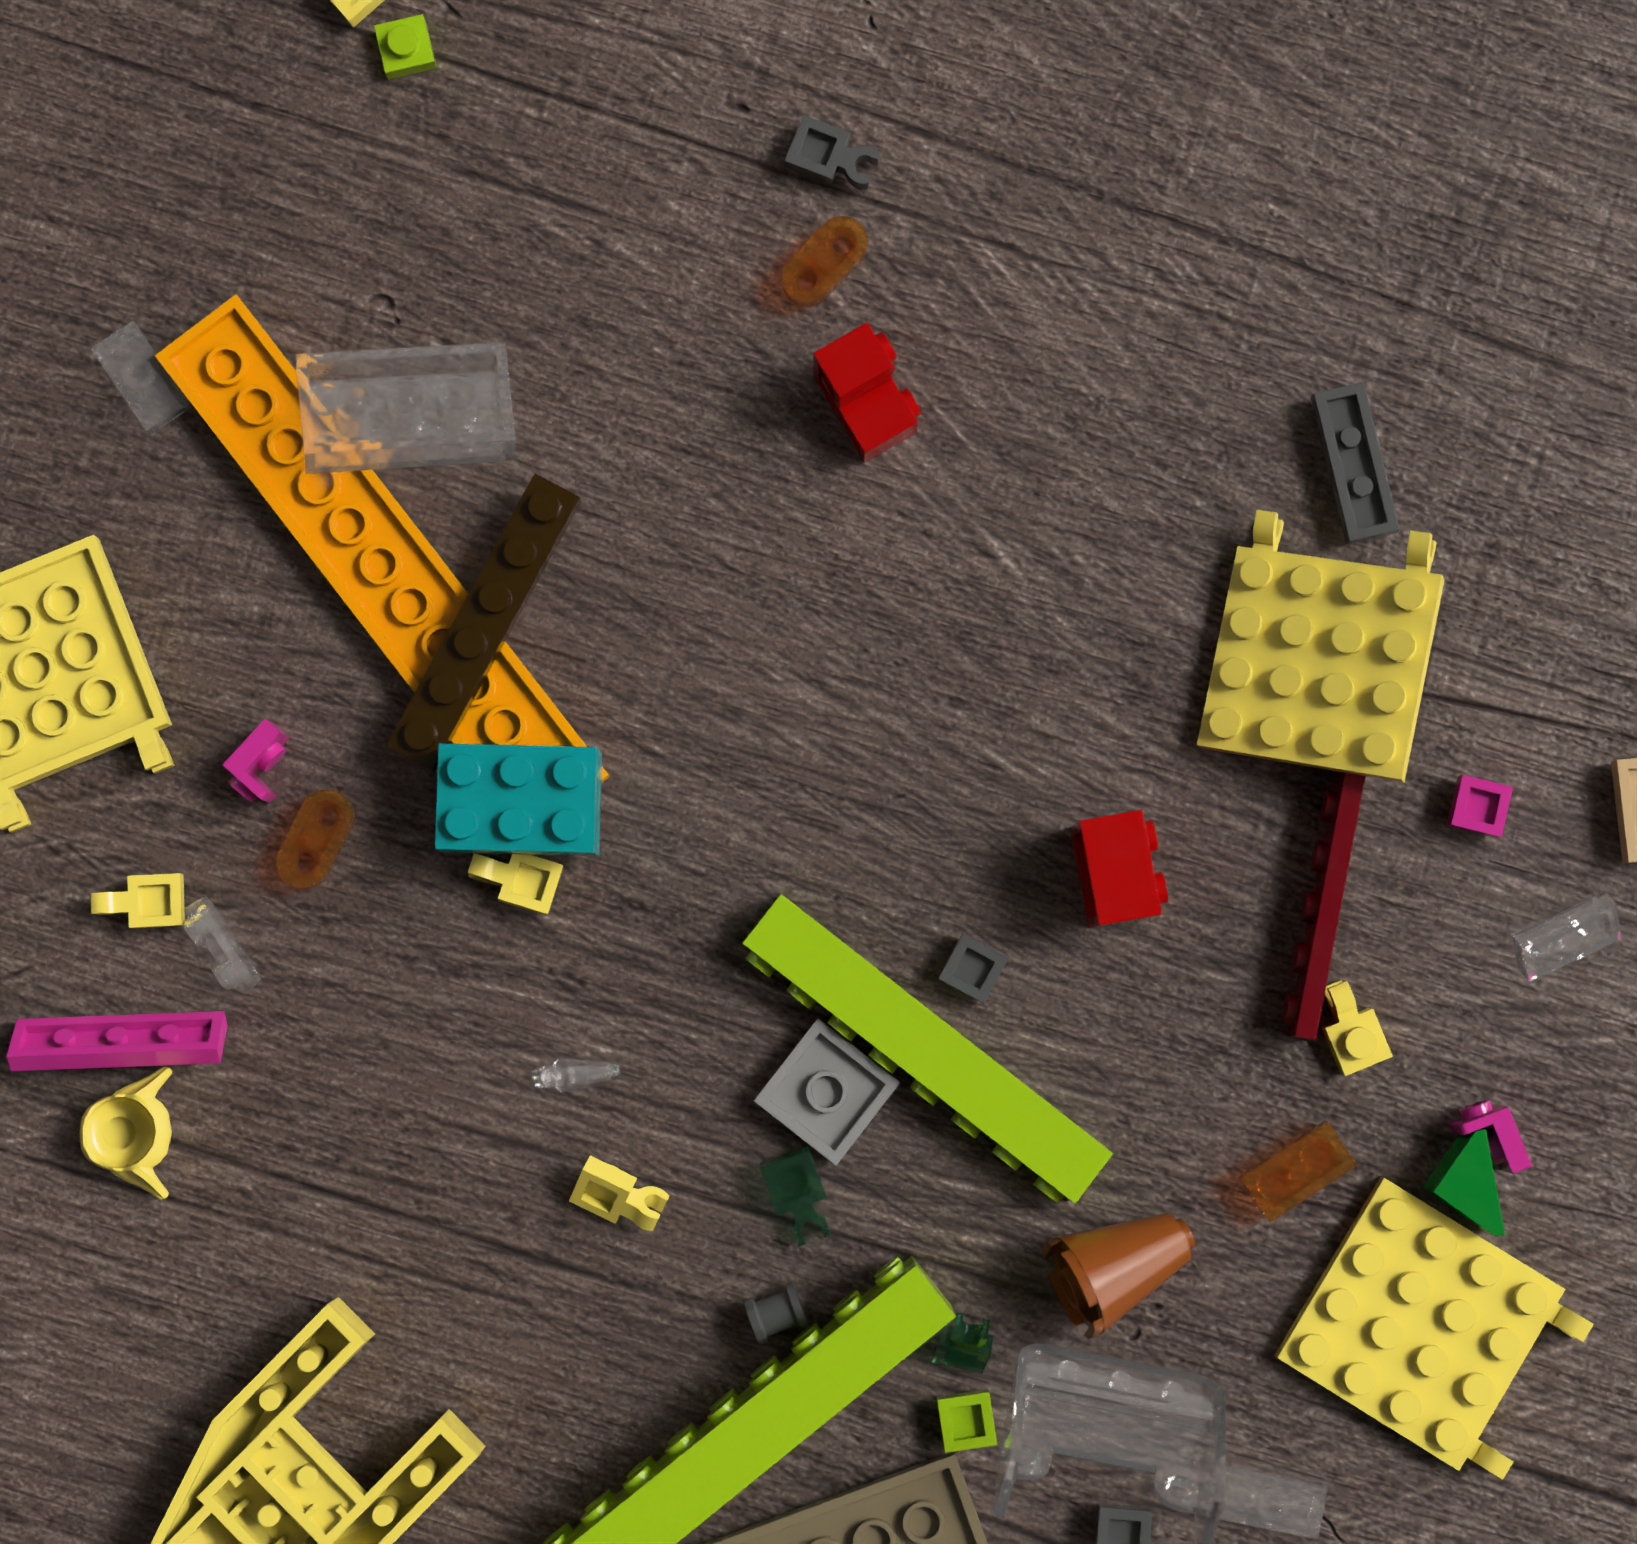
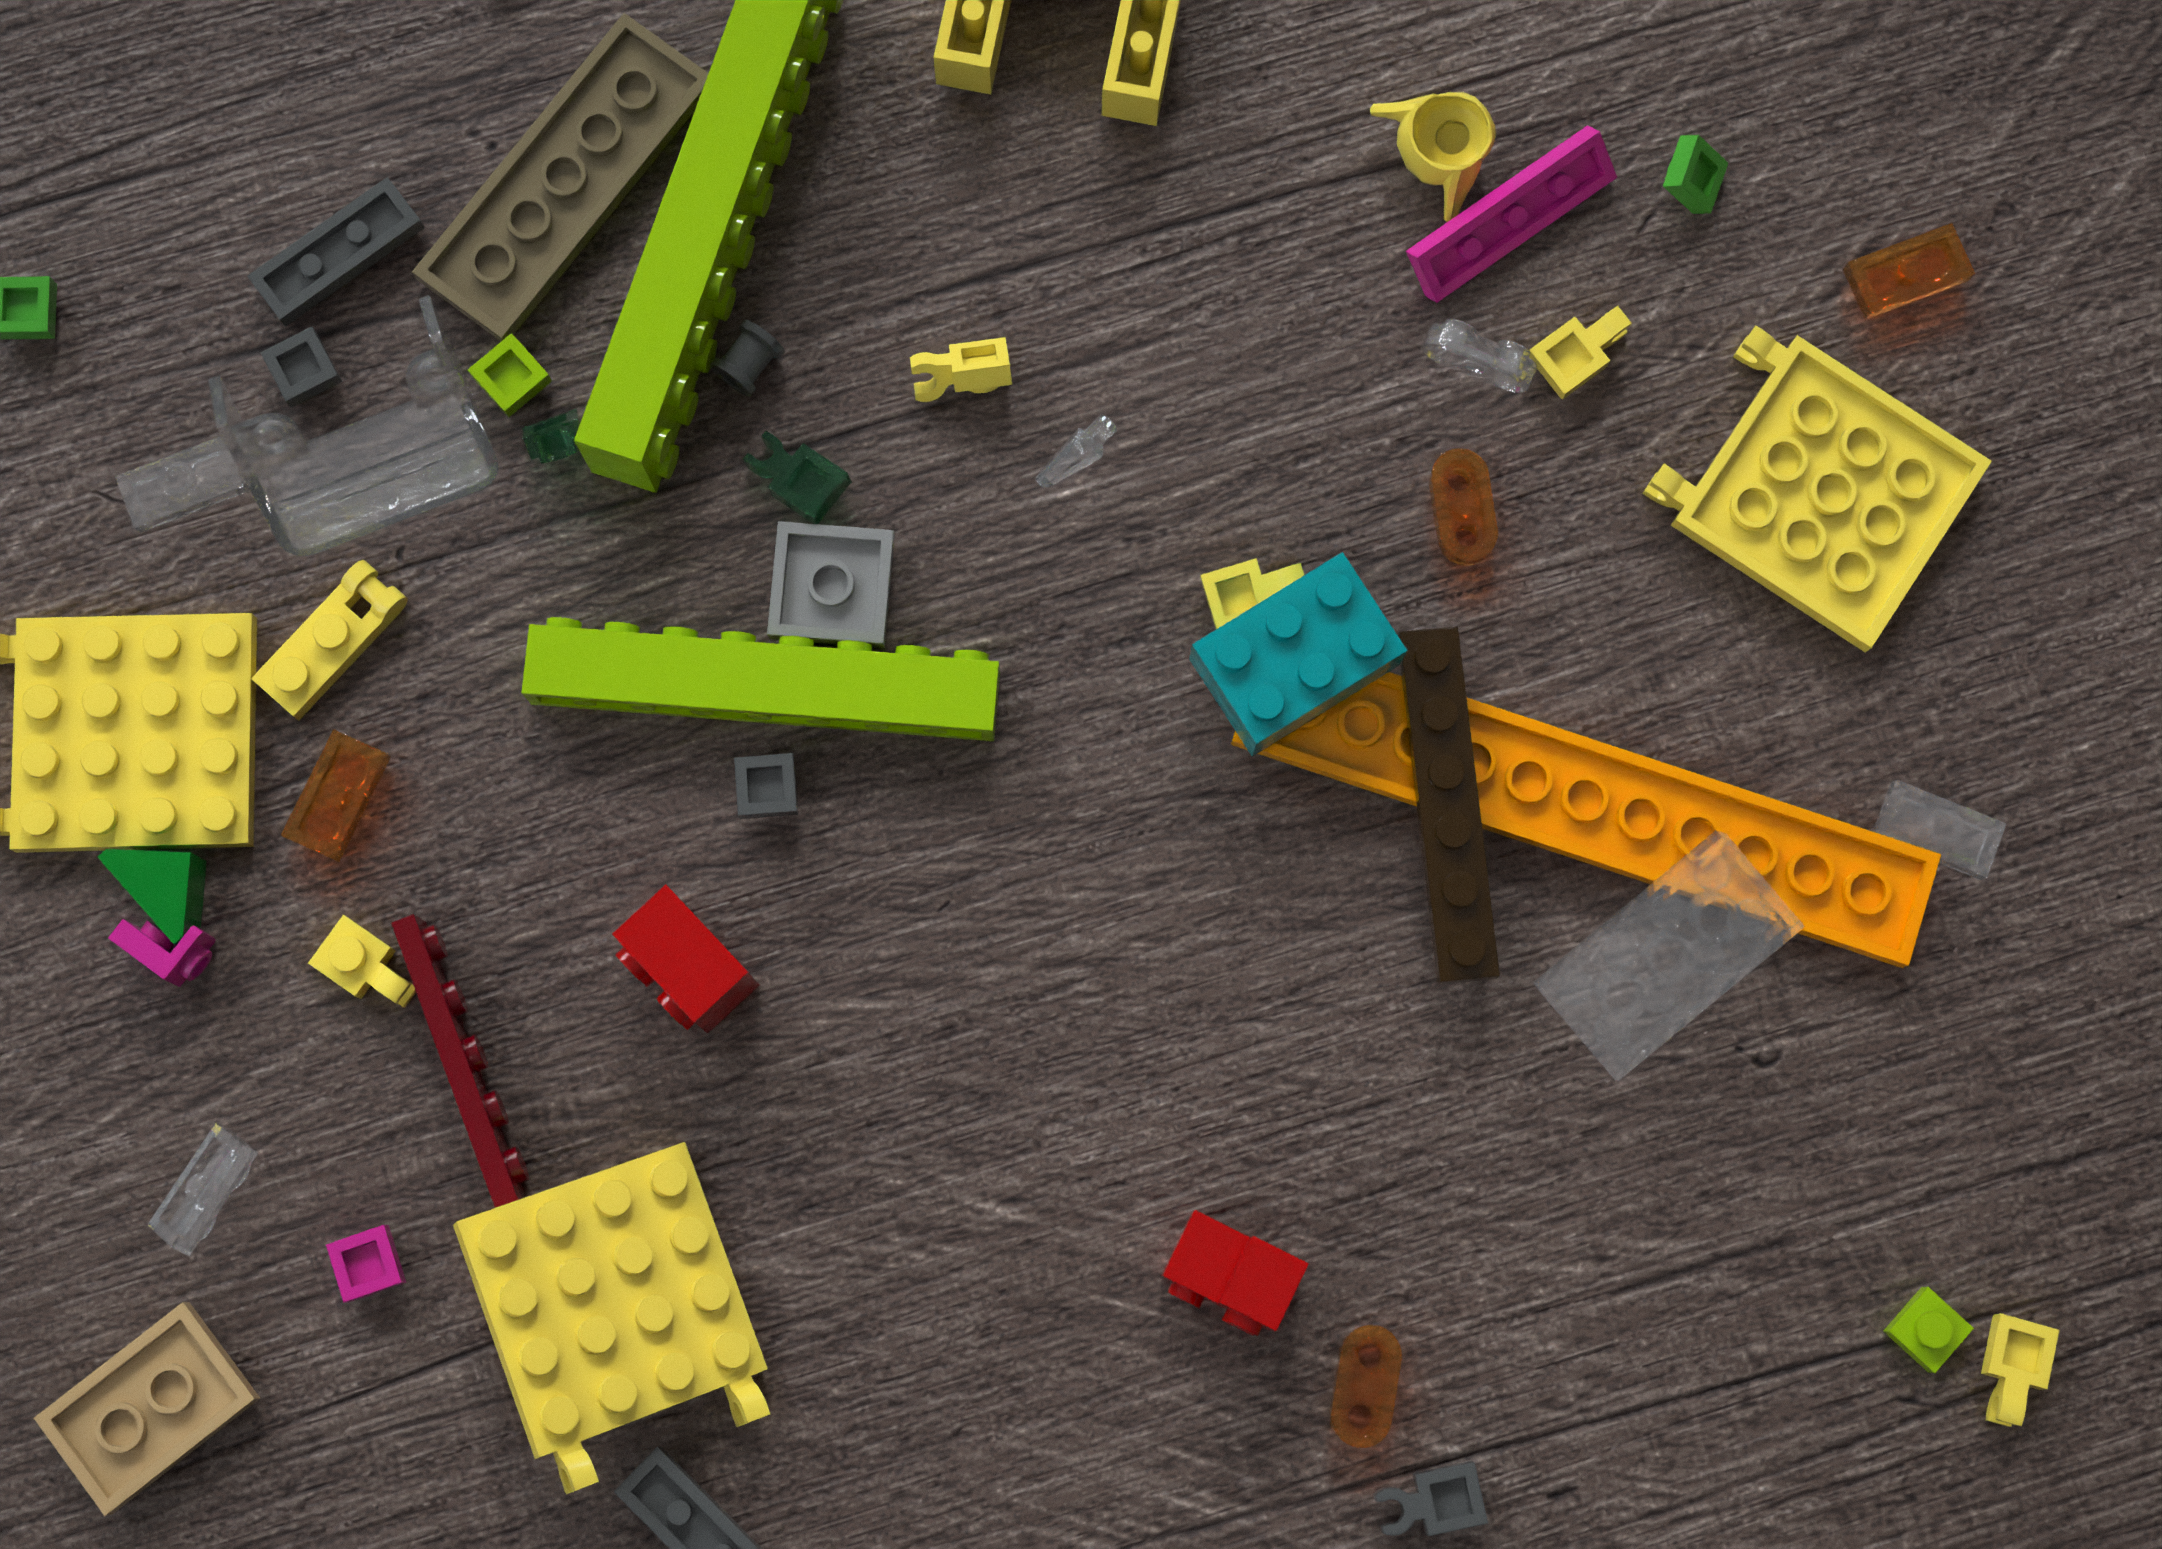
camera: 145 degrees right, 5 degrees down
(259, 751) = (1572, 550): dark pink bracket -> none
(1115, 1267) = (453, 596): dark orange cone -> none
(1231, 1298) = (329, 640): none -> light yellow plate

